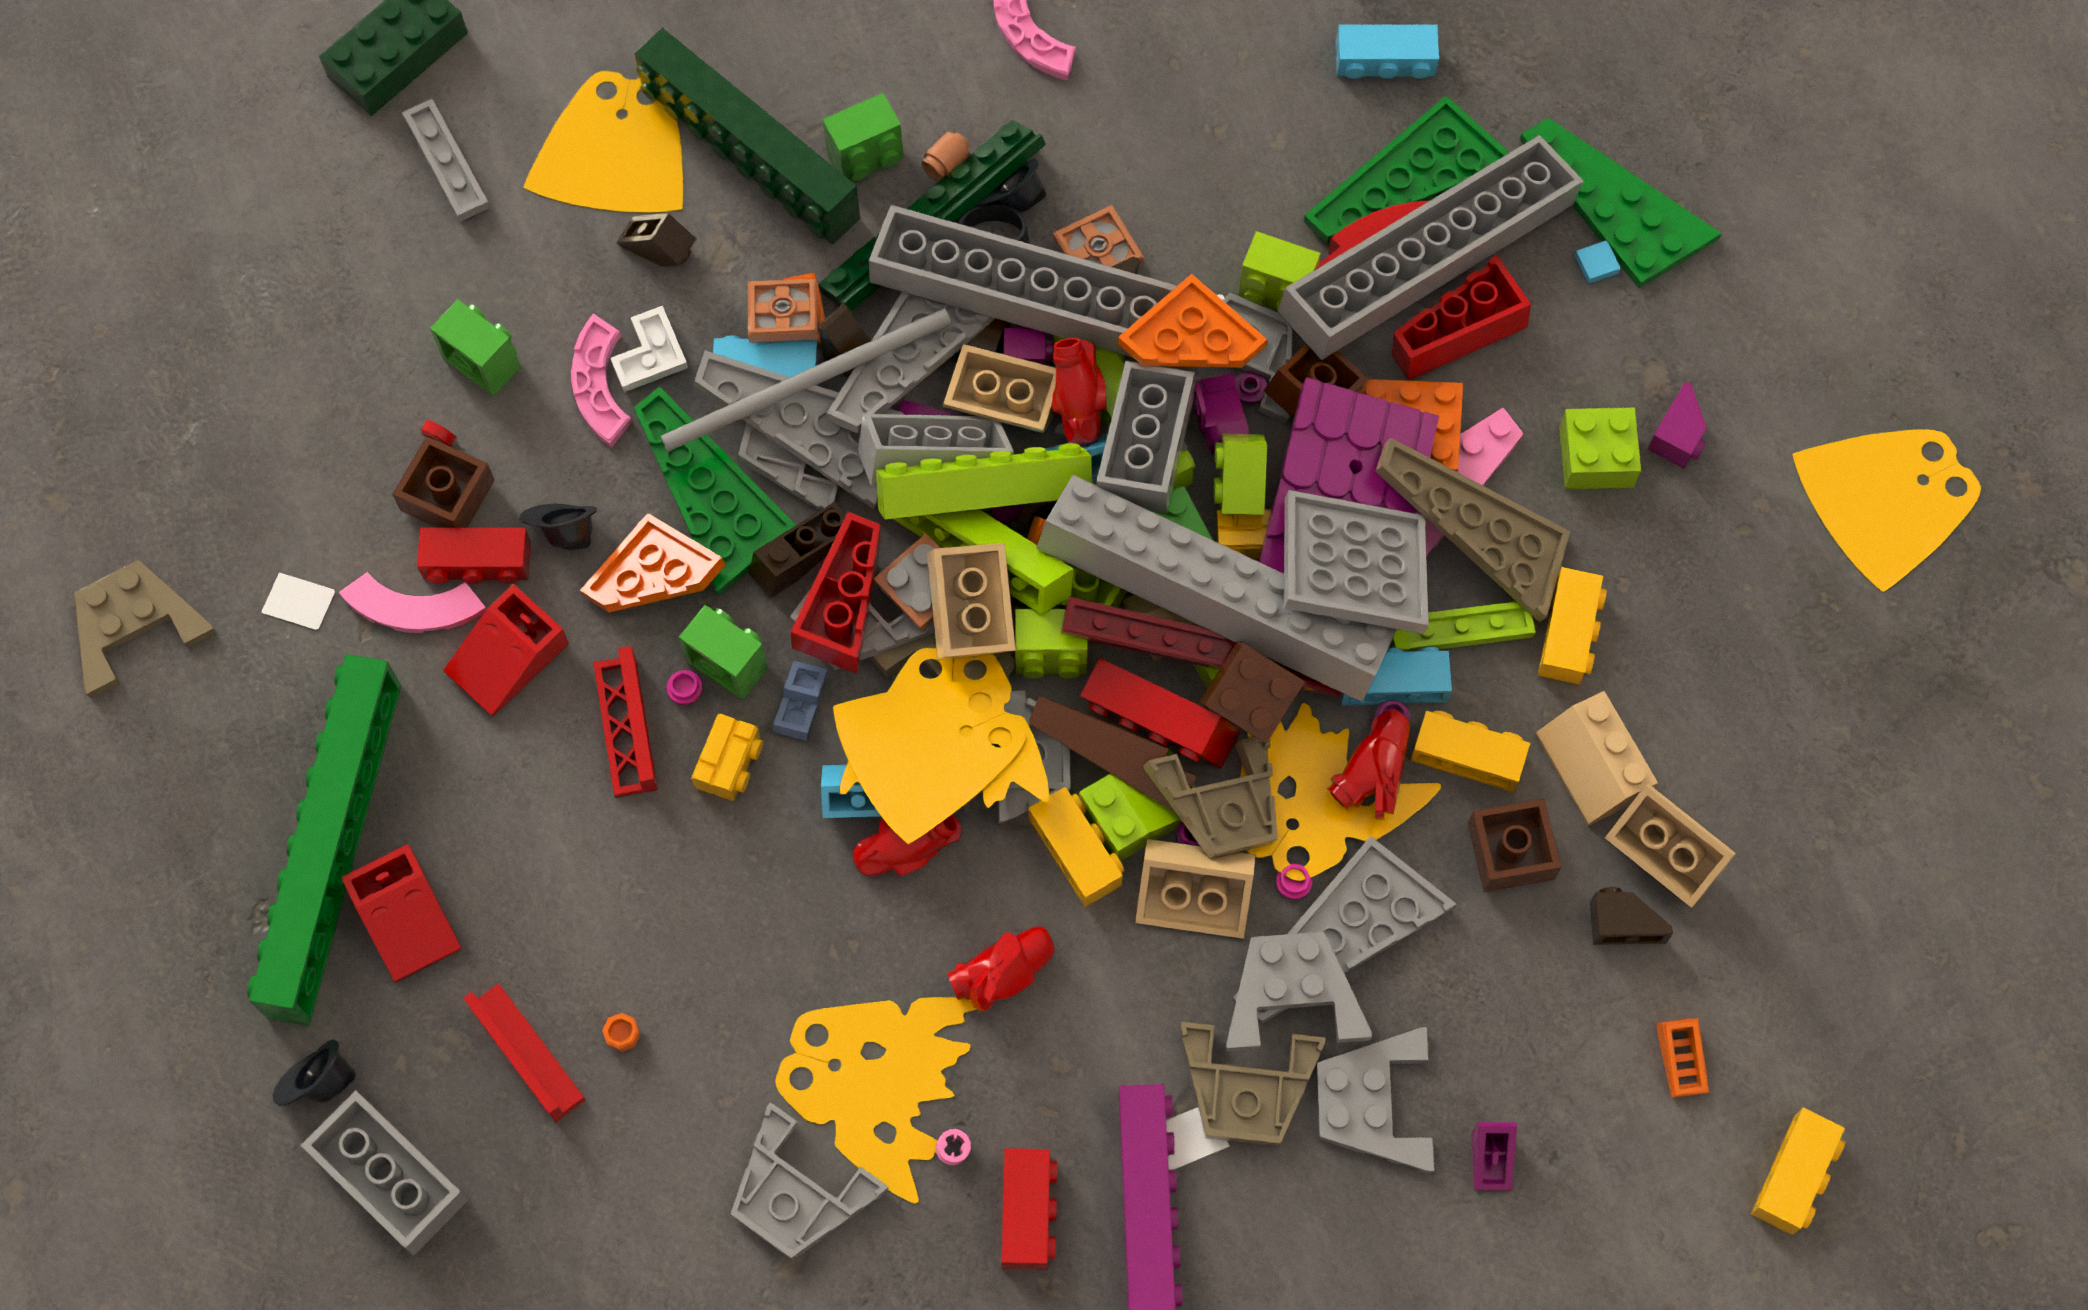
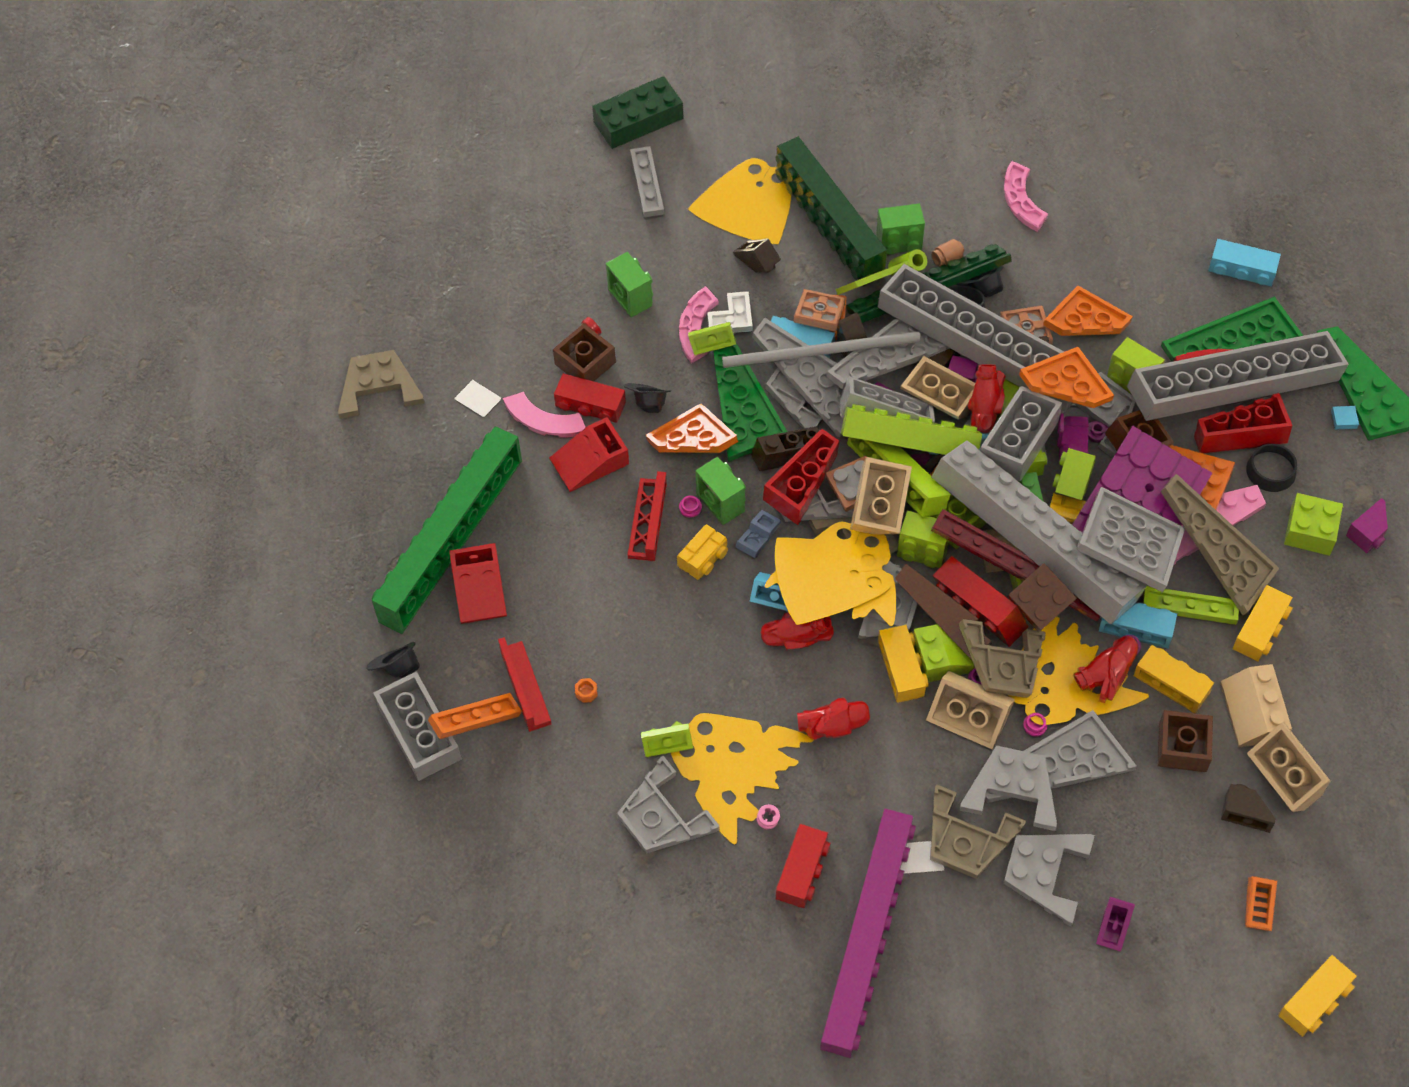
camera: 20 degrees right, 10 degrees down
(468, 1132) = (474, 715): none -> orange plate
(633, 403) = (712, 338): none -> lime tile
(763, 1078) = (667, 739): none -> lime tile
(901, 191) = (915, 259): none -> lime piece
(1181, 203) = (1086, 315): none -> orange plate
(1513, 401) = (1269, 484): none -> black tyre

